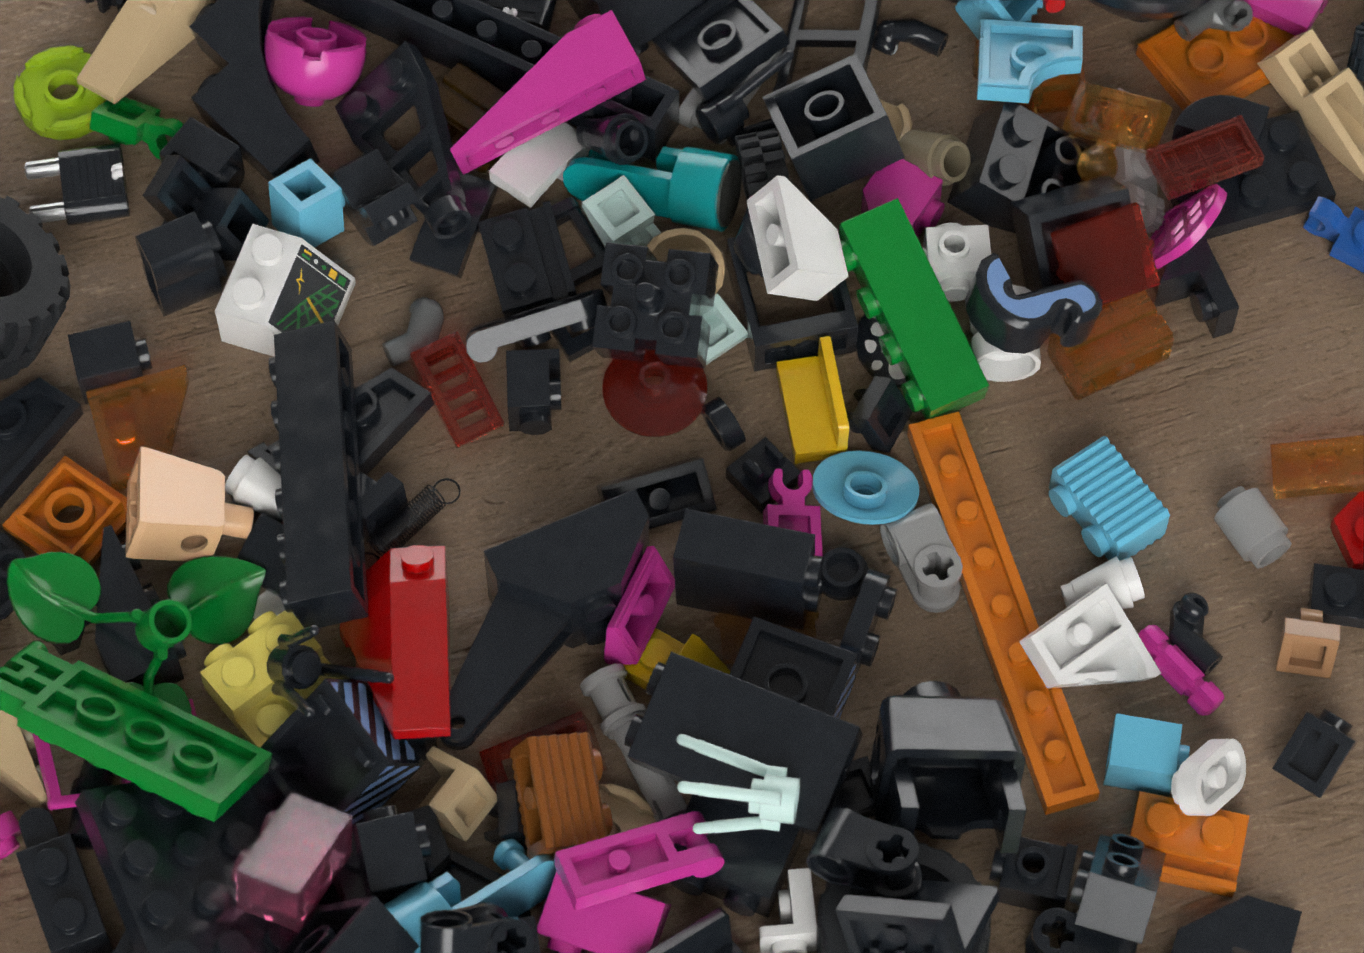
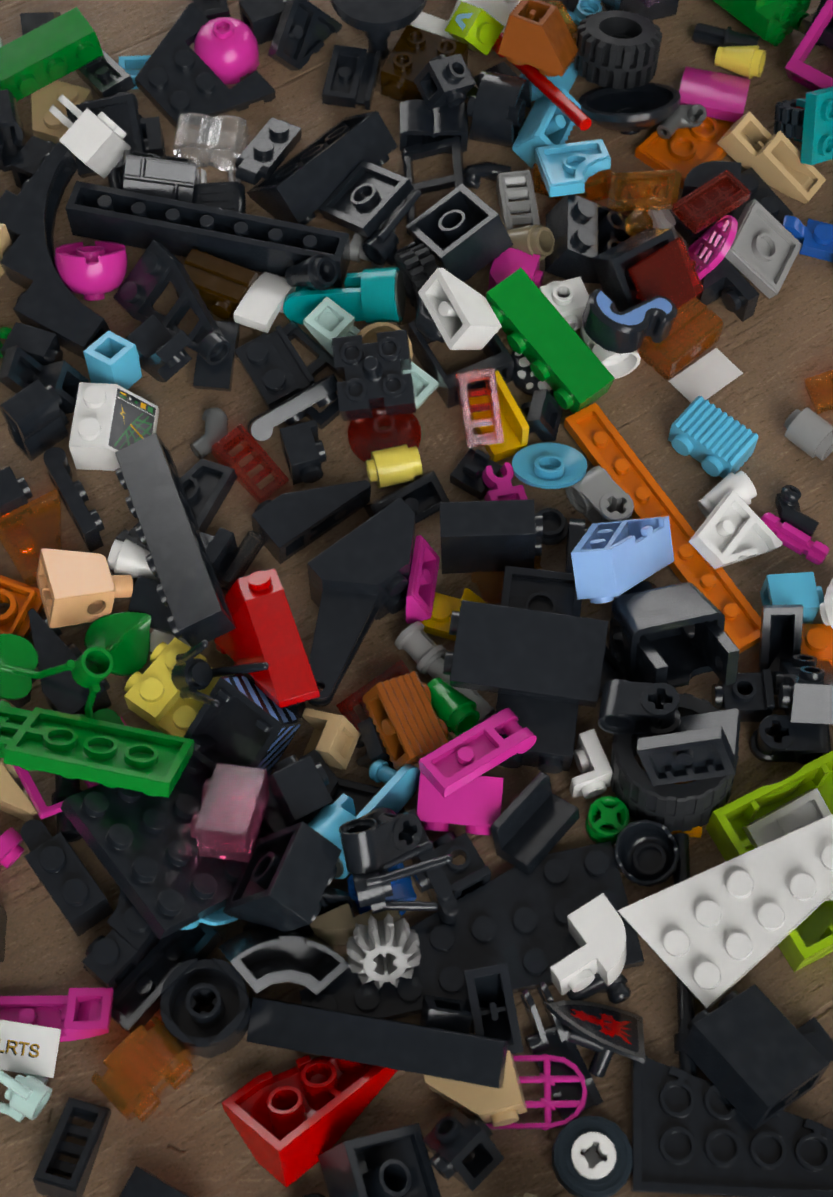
camera: 15 degrees left, 0 degrees up
(206, 382) = (73, 497): none -> black plate
(507, 481) = (305, 515): none -> black slope
(568, 80) = (276, 237): dark pink slope -> none
(629, 791) = (453, 707): none -> green cone
(651, 438) = (394, 465): none -> light yellow brick
(723, 424) = (439, 446): black tile -> none
(771, 798) = (563, 684): light aqua plant -> none
(797, 337) = (487, 374): none -> clear red slope
(913, 640) = (620, 556): none -> light blue wedge
(941, 67) = (513, 187): none -> light grey slope
(1106, 802) = (779, 634): none -> black slope
(1134, 407) = (706, 376): none -> white sticker
(1268, 238) = (763, 249): none -> light grey plate

